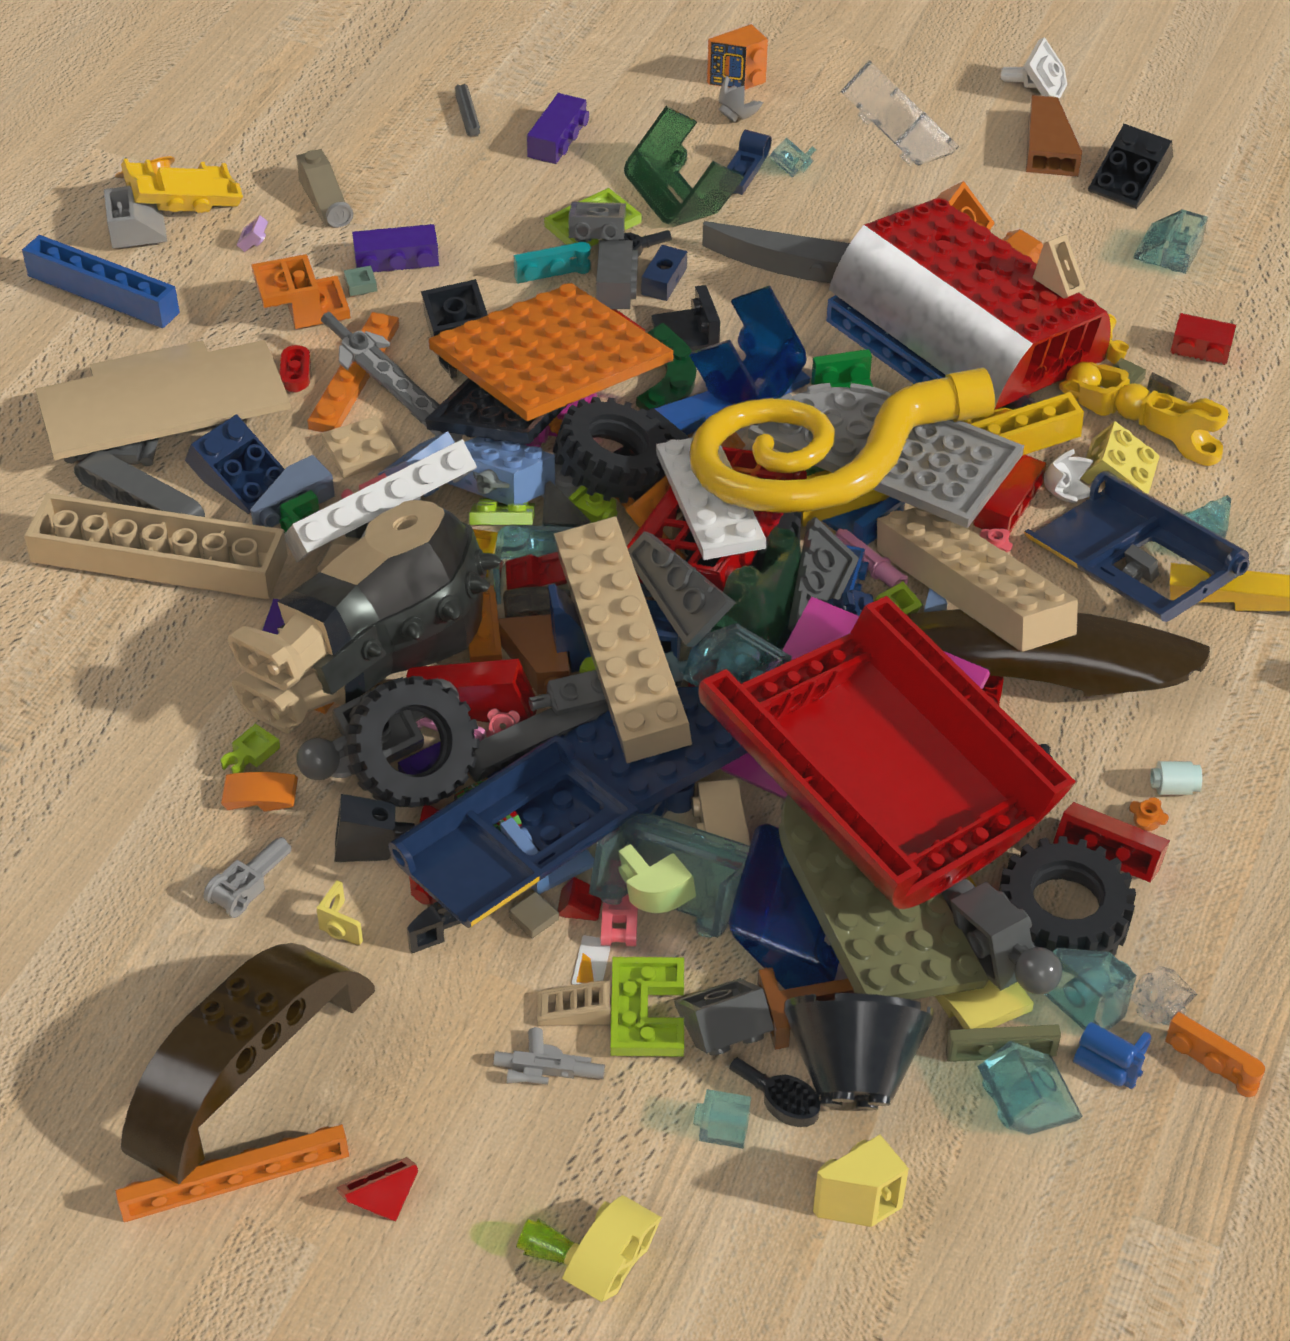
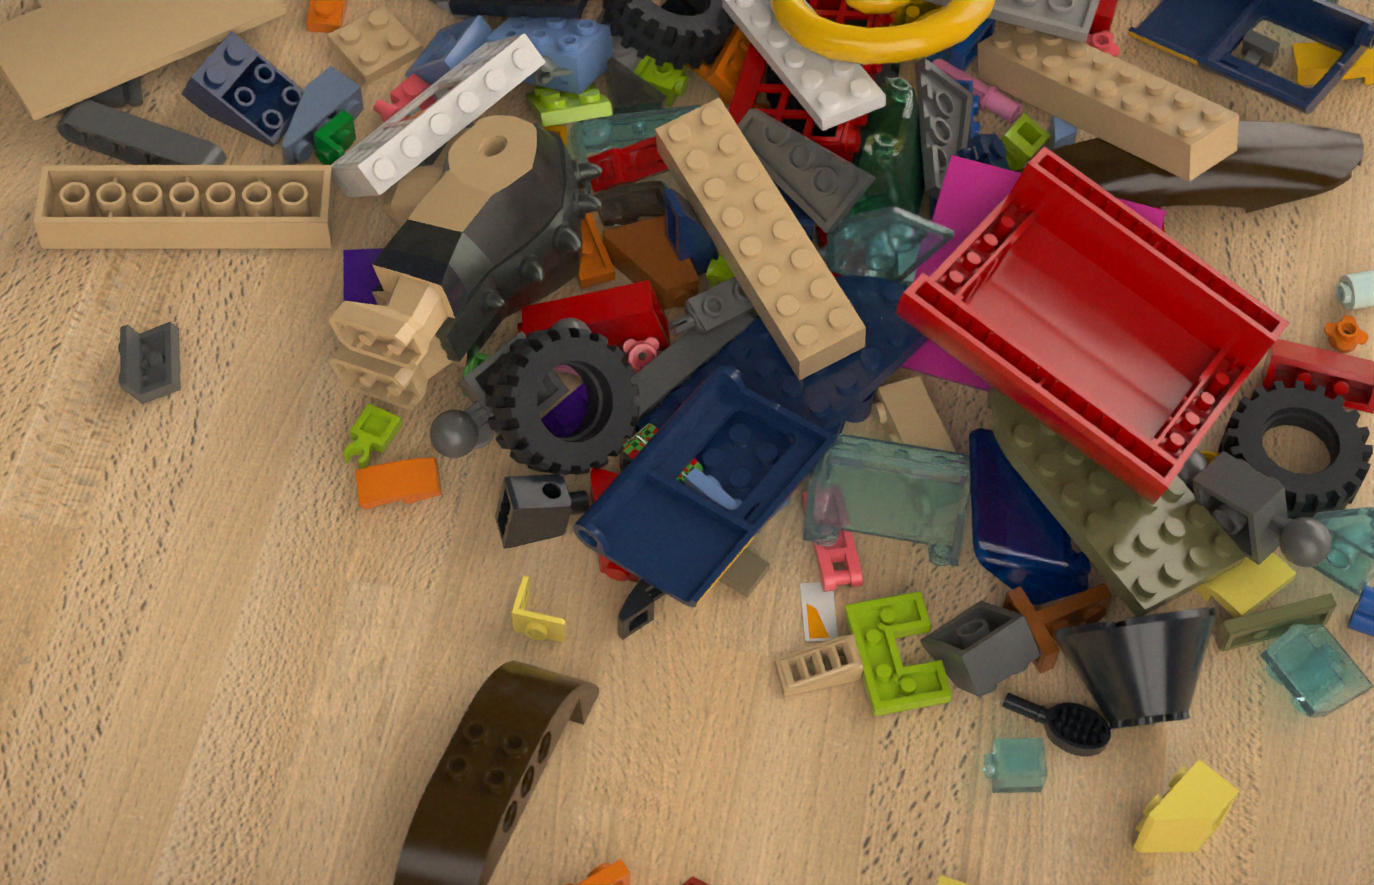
camera: 15 degrees left, 10 degrees up
(85, 662) = (150, 362): none -> dark grey bracket
(243, 882) = (416, 593): light grey connector -> none
(545, 1060) = (805, 736): light grey piece -> none
(577, 902) = (785, 545): red slope -> none
(656, 887) = (876, 521): yellowish green brick -> none

